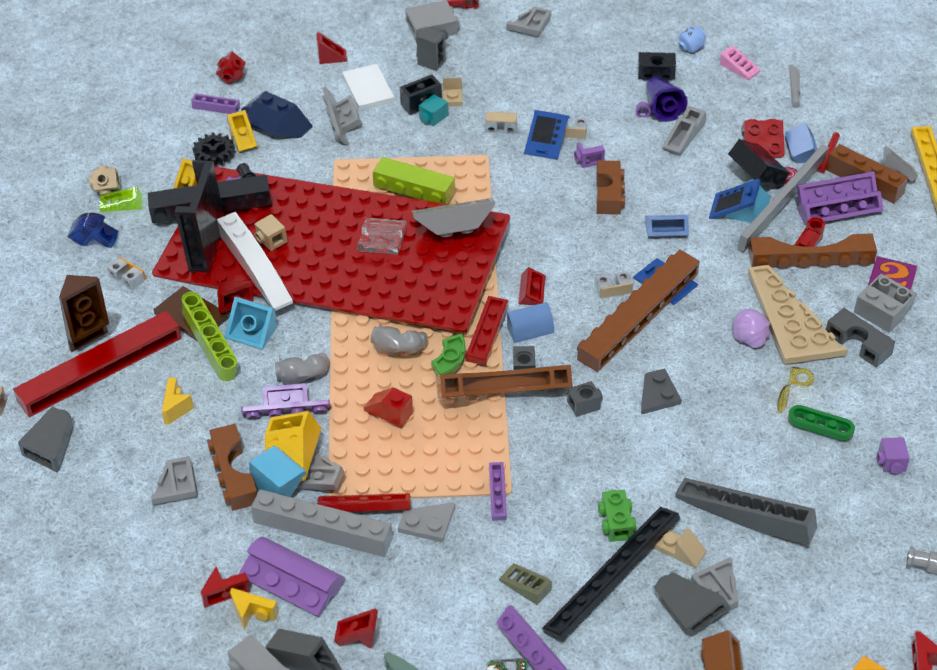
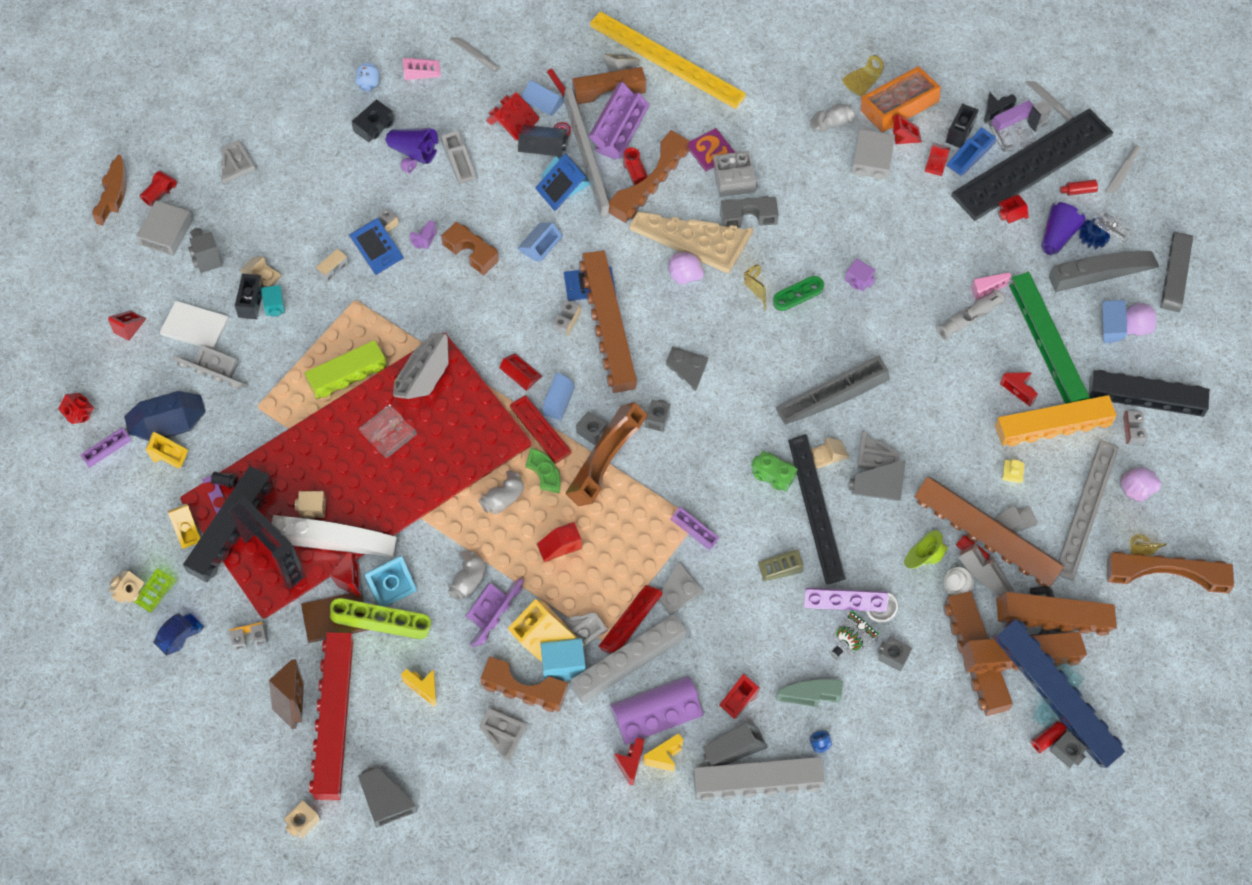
camera: 55 degrees left, 15 degrees up
(214, 148) = (163, 484): black gear -> none

